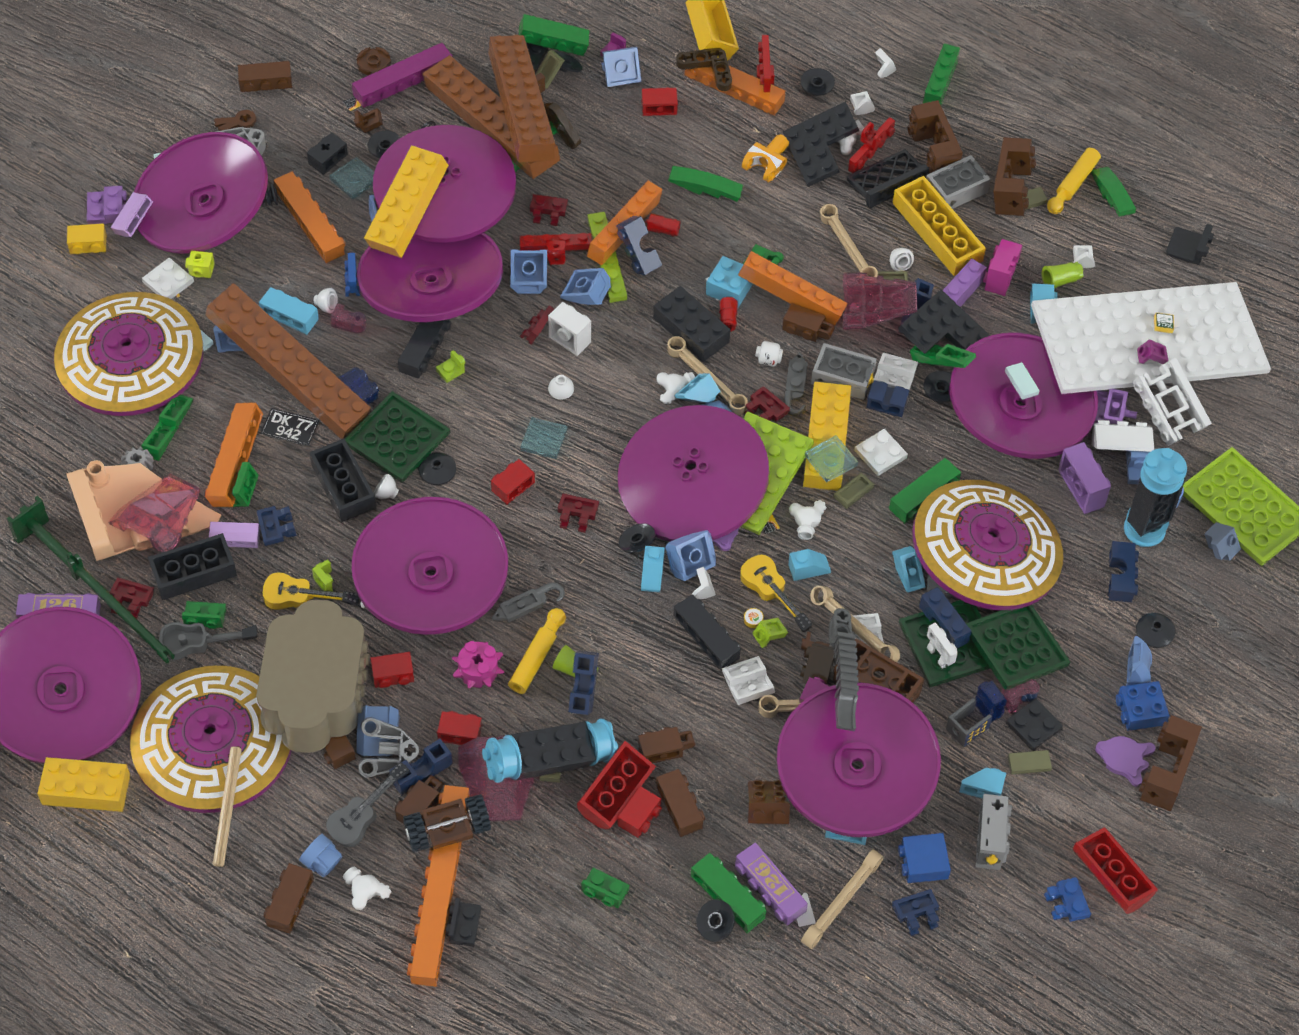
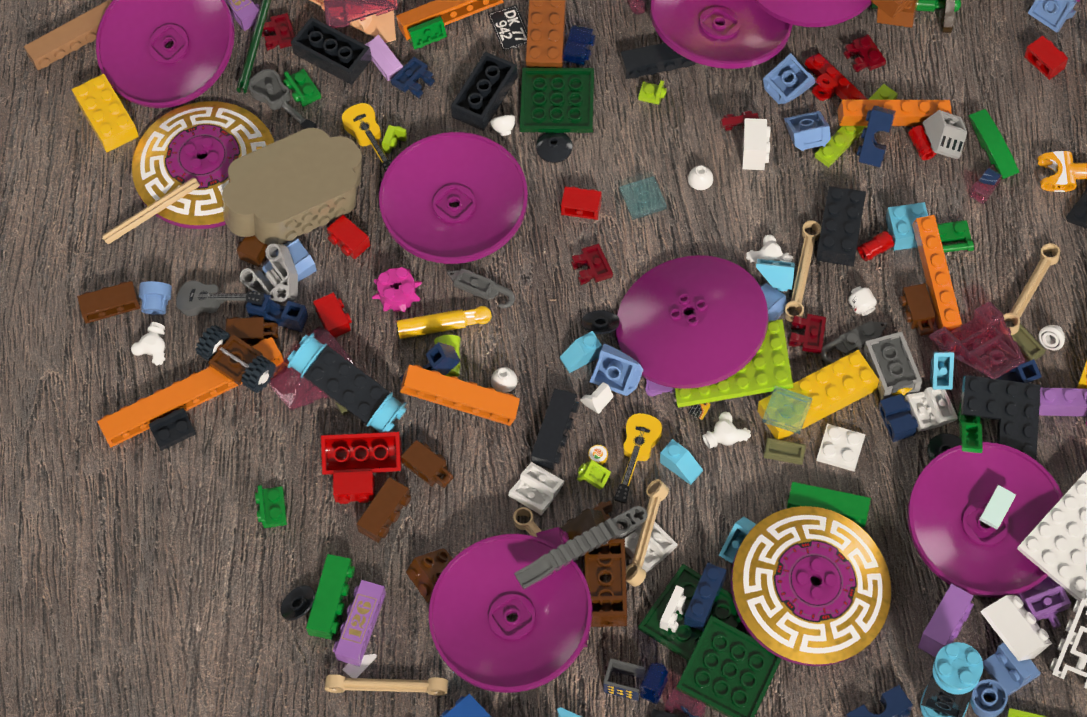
camera: 60 degrees right, 5 degrees up
(625, 675) = (460, 395): none -> orange brick
(628, 641) = (504, 380): none -> white brick
(674, 203) = (946, 133): none -> light grey slope
(736, 212) = (985, 185): none -> clear pink leg
(876, 342) = (942, 370): none -> medium azure slope

